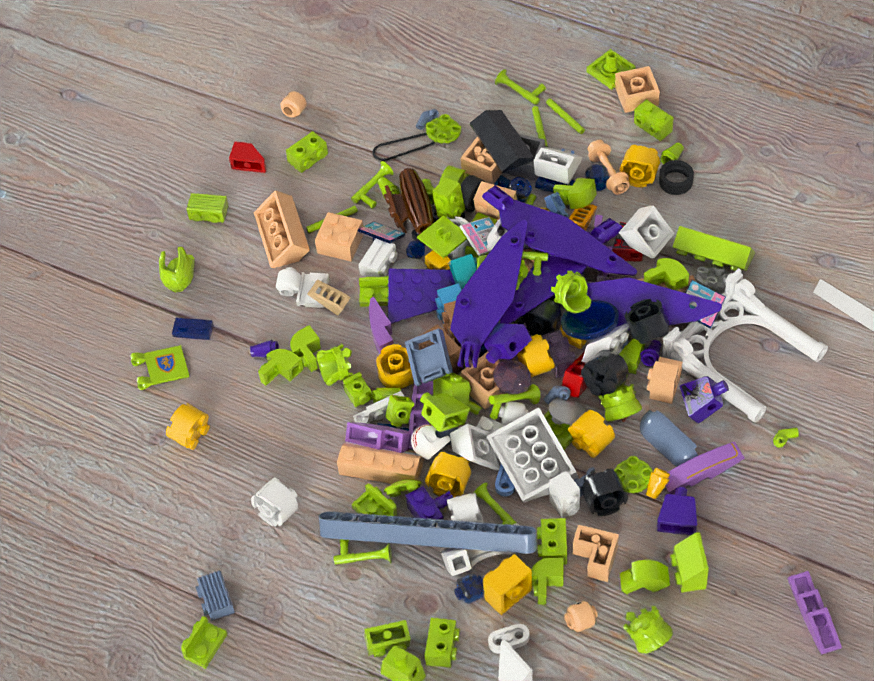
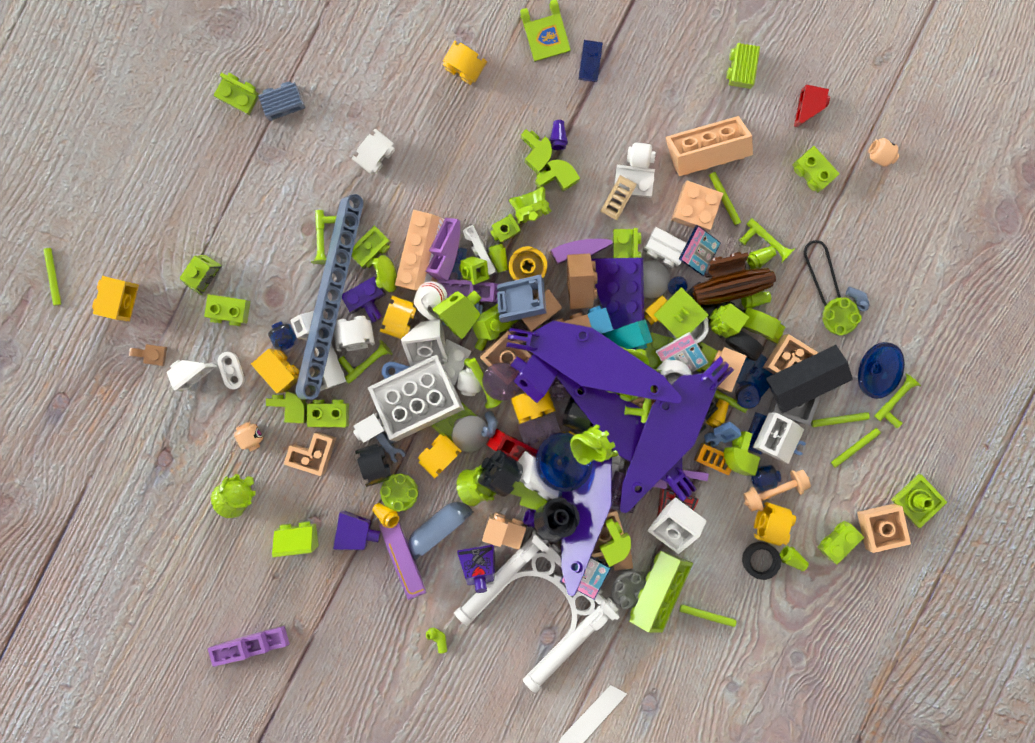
camera: 80 degrees right, 35 degrees up
(178, 272) = (657, 39): lime hair -> none
(384, 637) = (228, 260): lime brick -> none
(410, 316) = (581, 281): none -> medium nougat brick
(492, 97) = (881, 370): none -> clear blue dish
(645, 574) = (284, 496): lime brick -> none
(734, 217) = (707, 615): none -> lime piece

